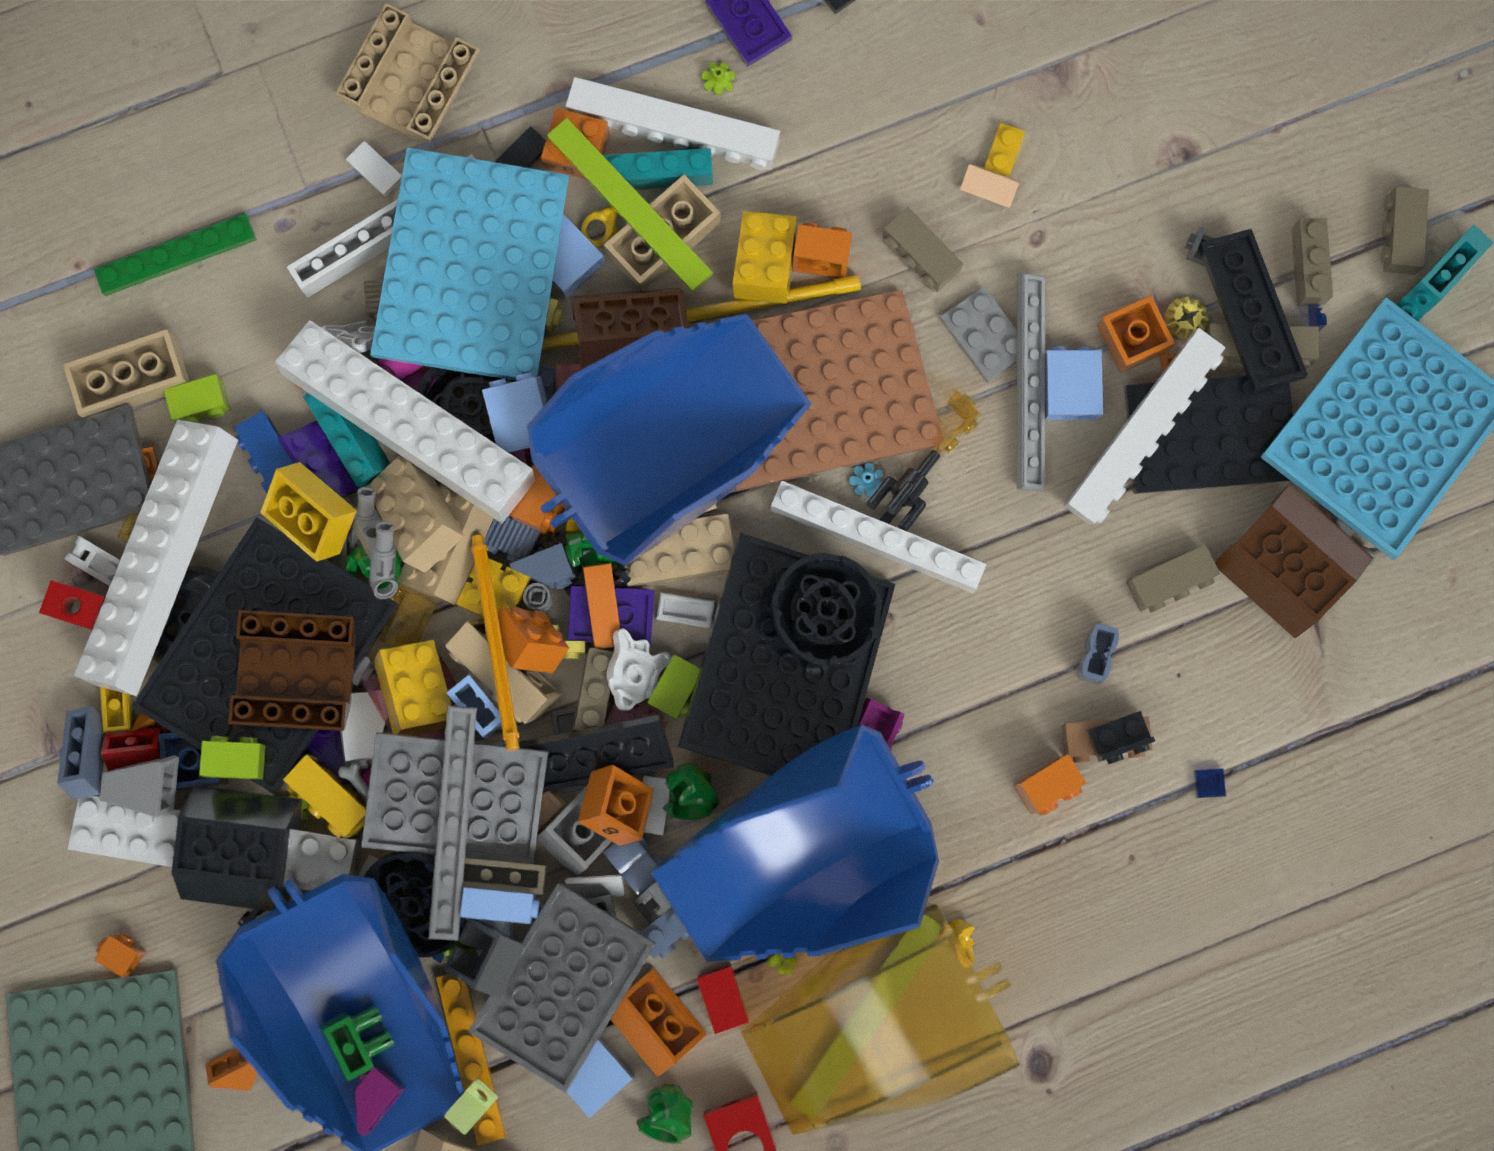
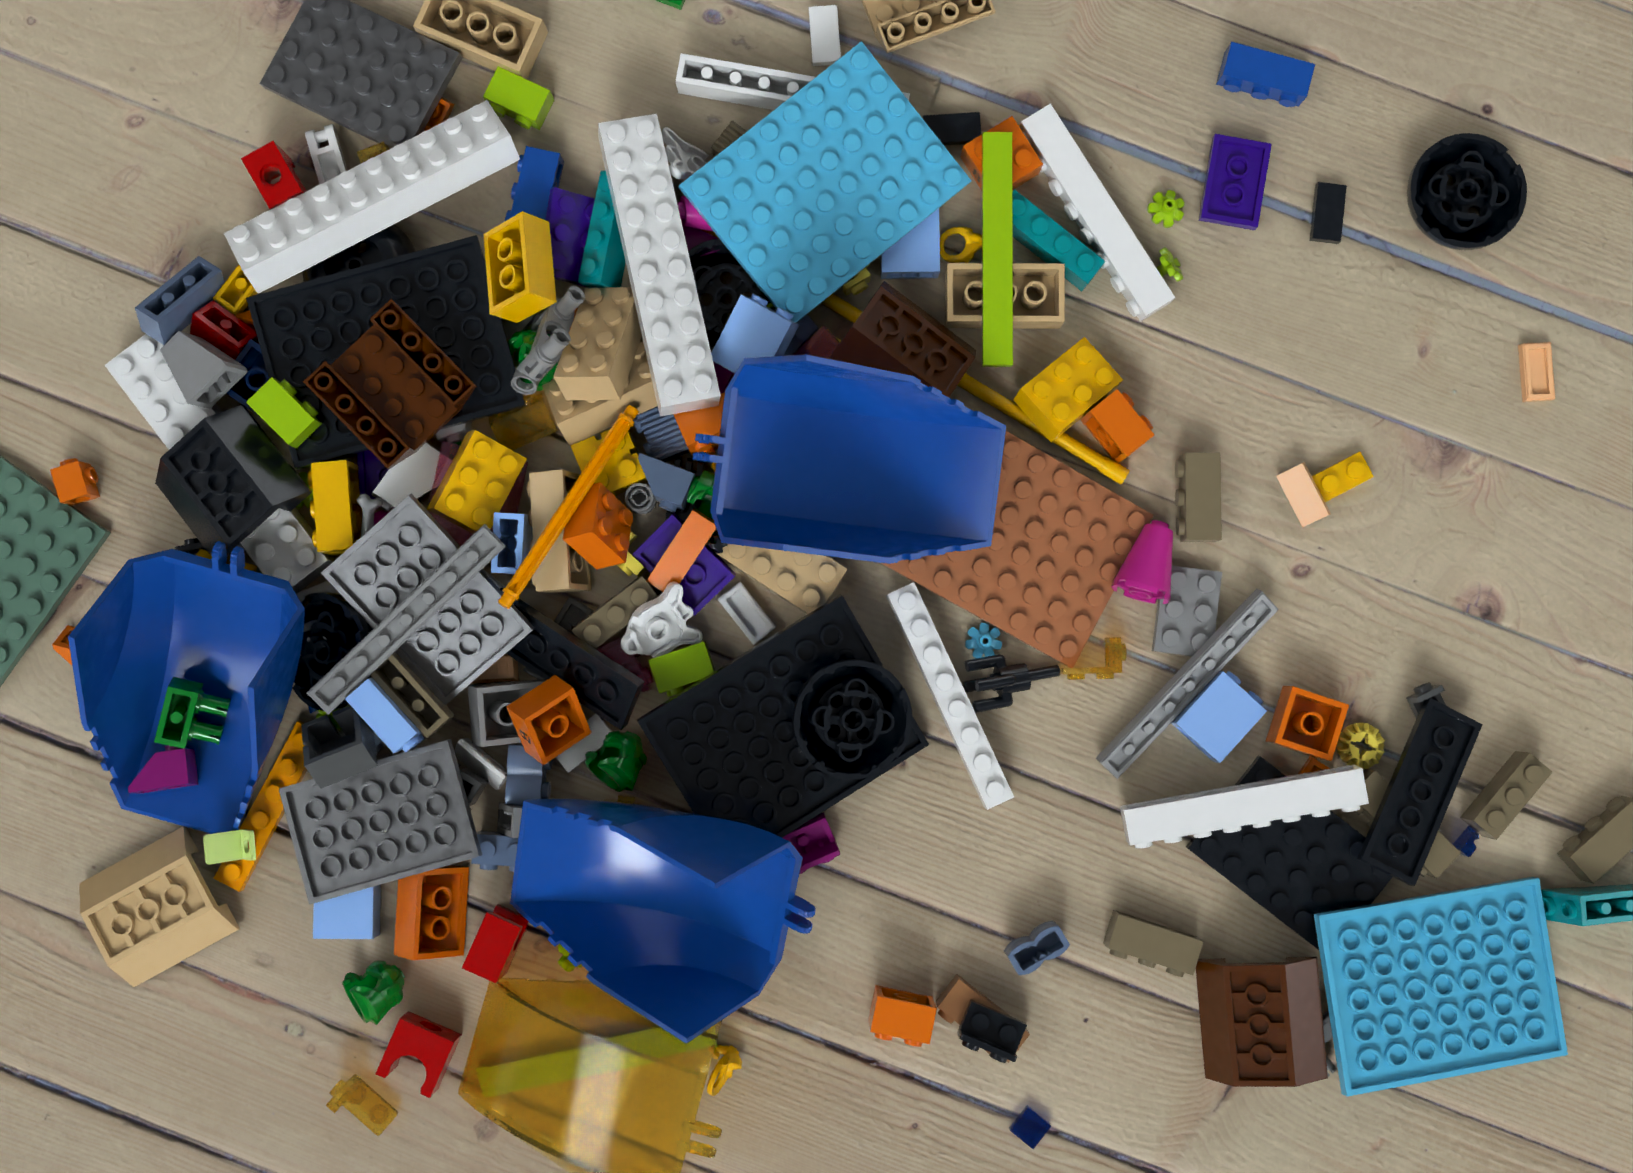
camera: 40 degrees right, 5 degrees up
(756, 113) = (1169, 265): none -> lime plant
(930, 326) = (1148, 565): none -> dark pink cone

